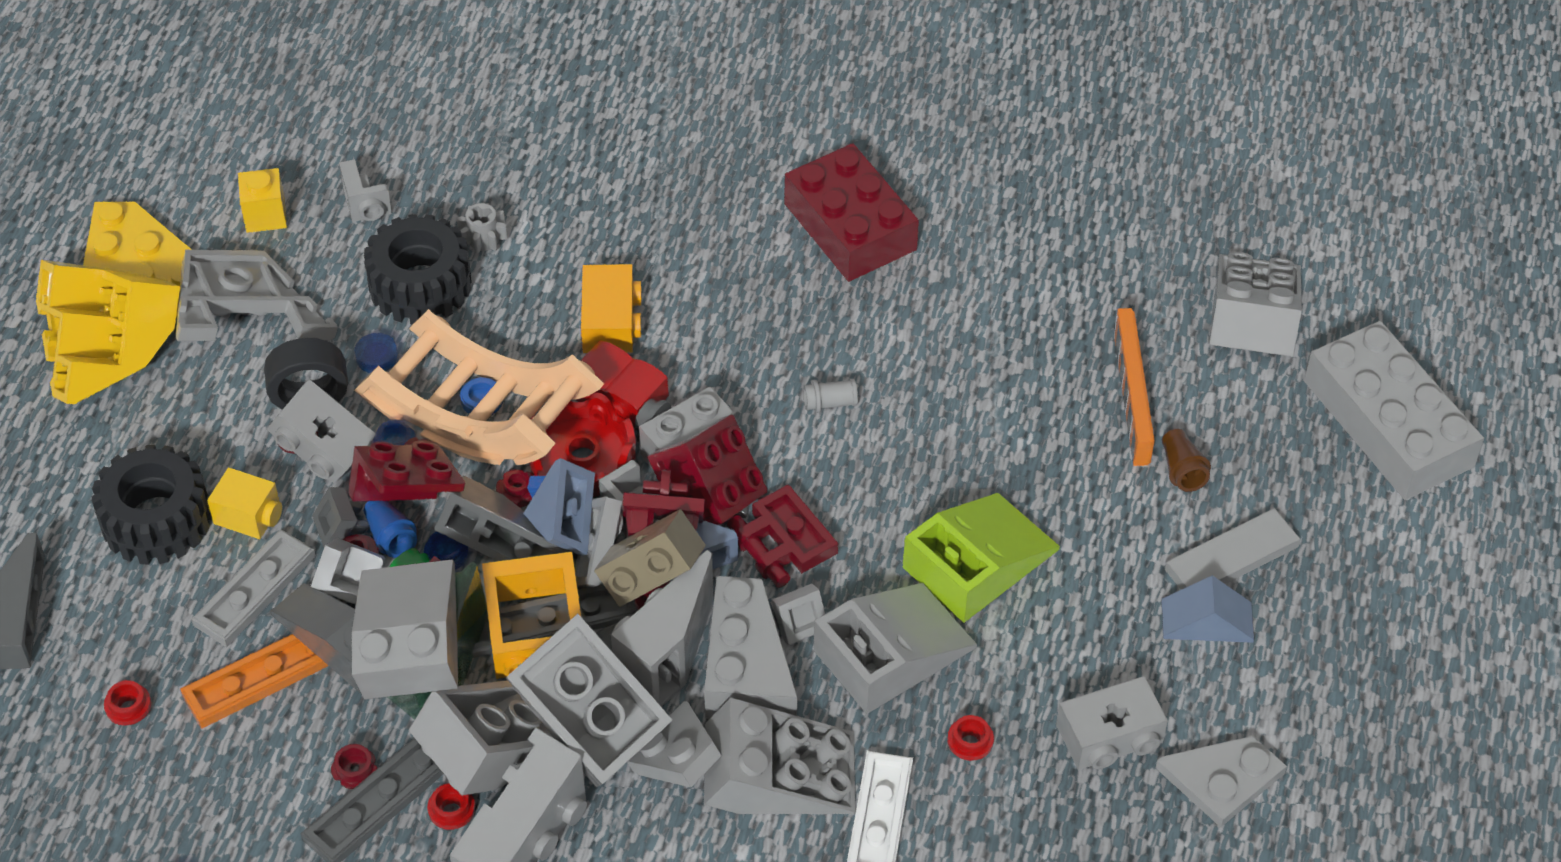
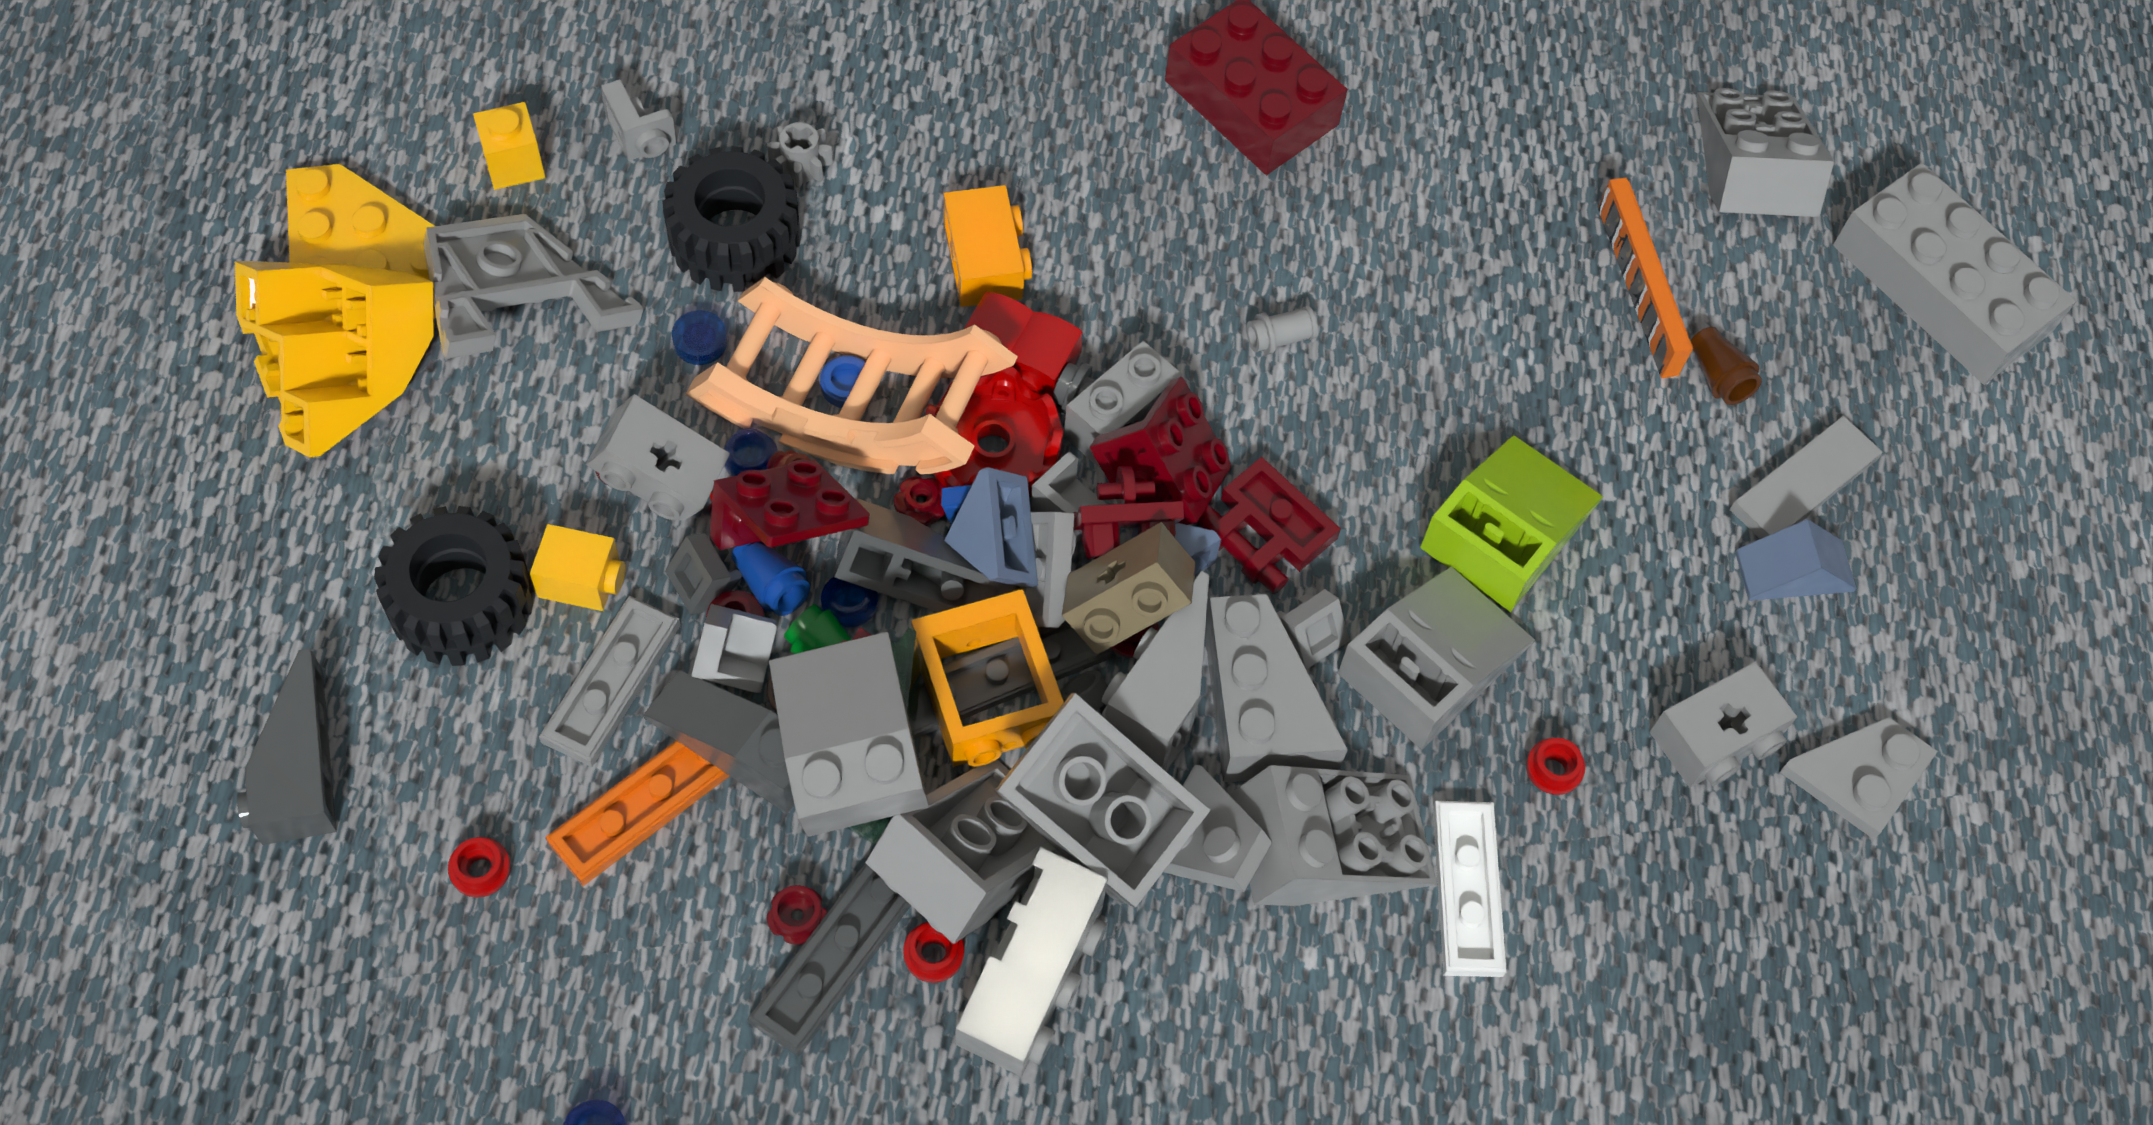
camera: 15 degrees left, 10 degrees up
(304, 355) = (612, 363): black tyre -> none

